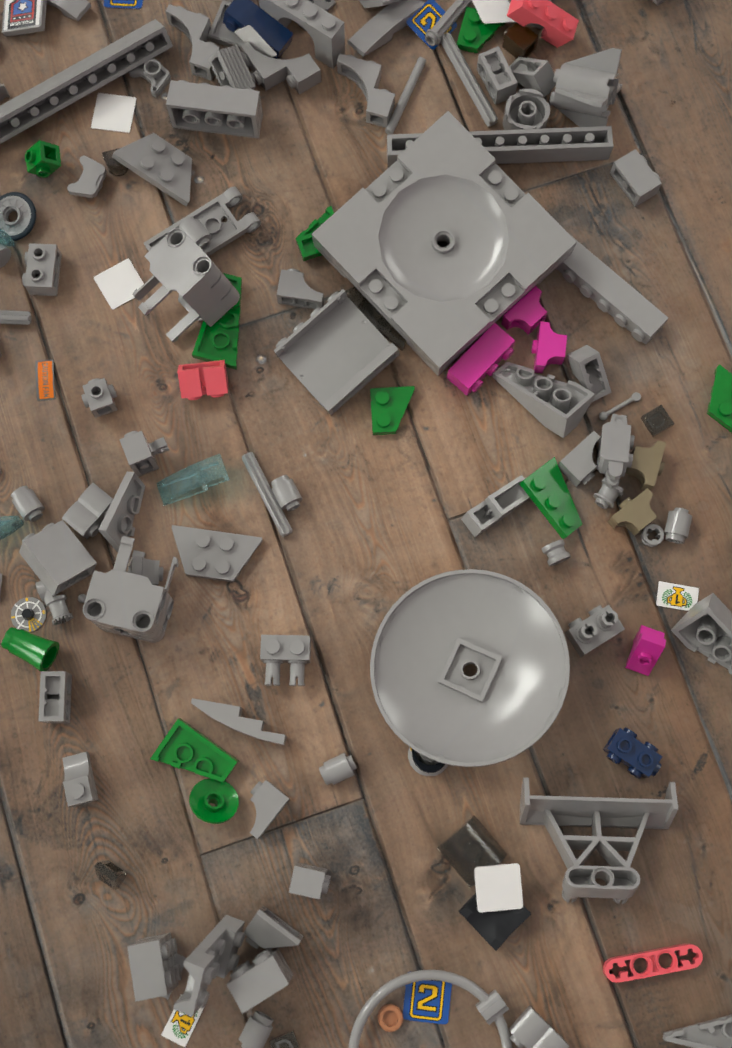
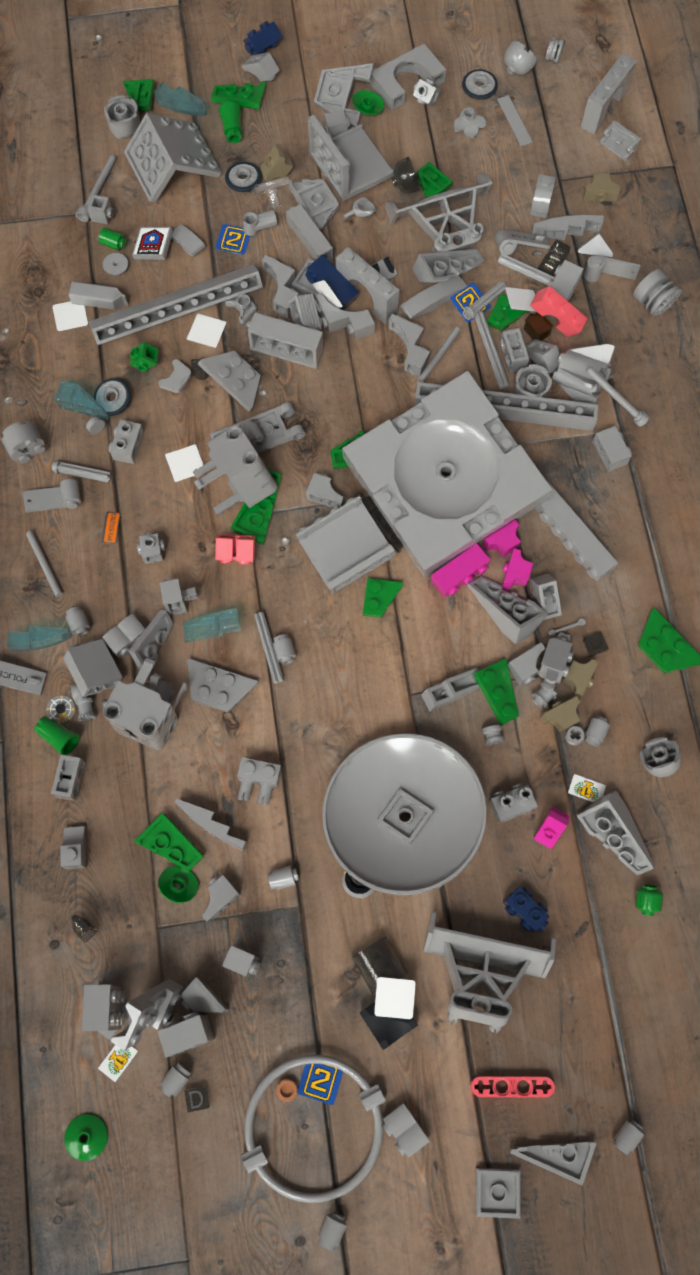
camera: 10 degrees right, 5 degrees down
(661, 133) = (639, 416): none -> light grey piece

